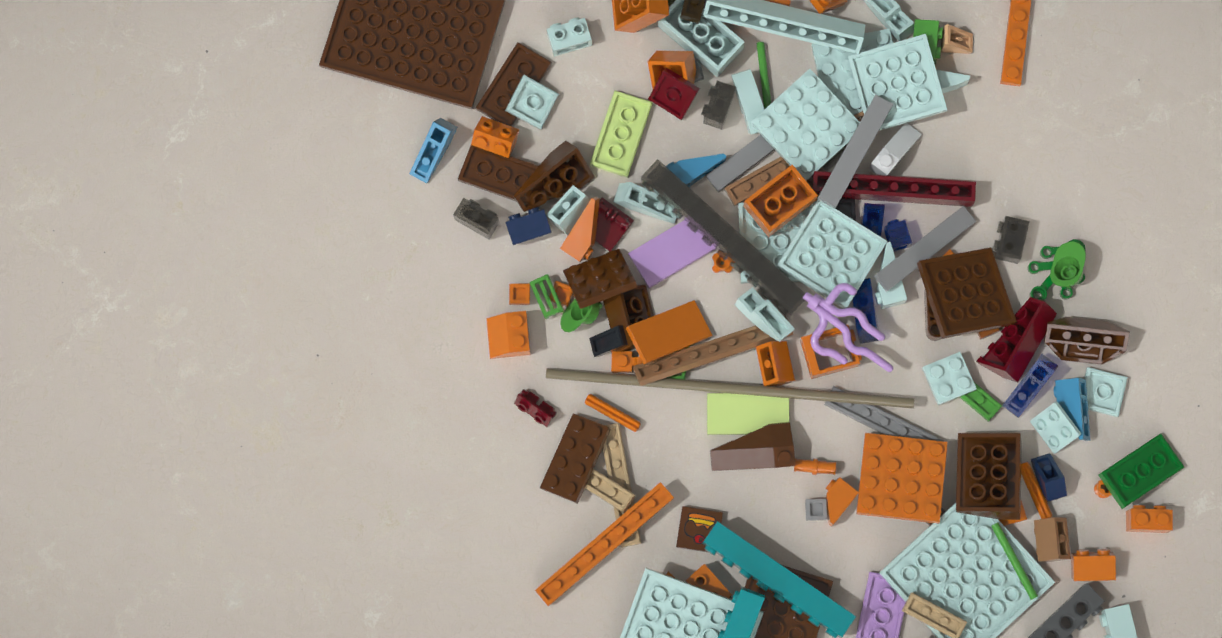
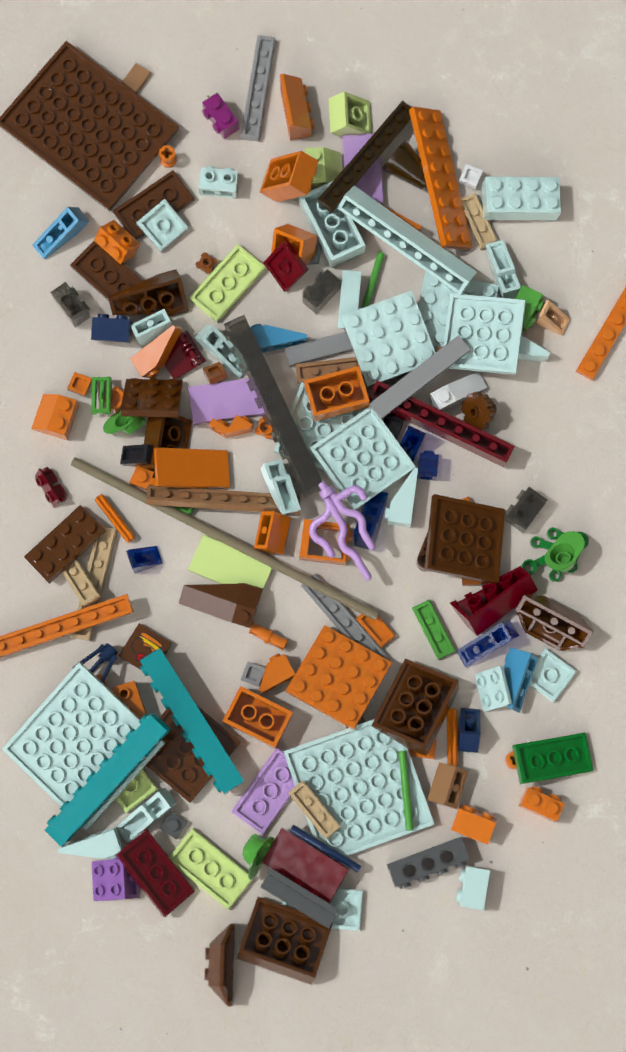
camera: 20 degrees right, 0 degrees up
(502, 34) = (163, 152): none -> orange bush
(587, 126) = (206, 258): none -> dark orange plate
(649, 228) = (215, 373): none -> dark orange plate
(659, 440) = (144, 558): none -> clear blue slope
(663, 549) = (106, 654): none -> dark blue plant
(696, 271) = (239, 426): none -> orange slope
(840, 549) = (257, 717): none -> orange brick
(916, 416) = (376, 629): none -> orange tile
(924, 160) = (478, 410): none -> reddish brown plant
(924, 248) = (445, 486): light grey tile -> none
(949, 378) = (418, 607): light aqua plate -> none

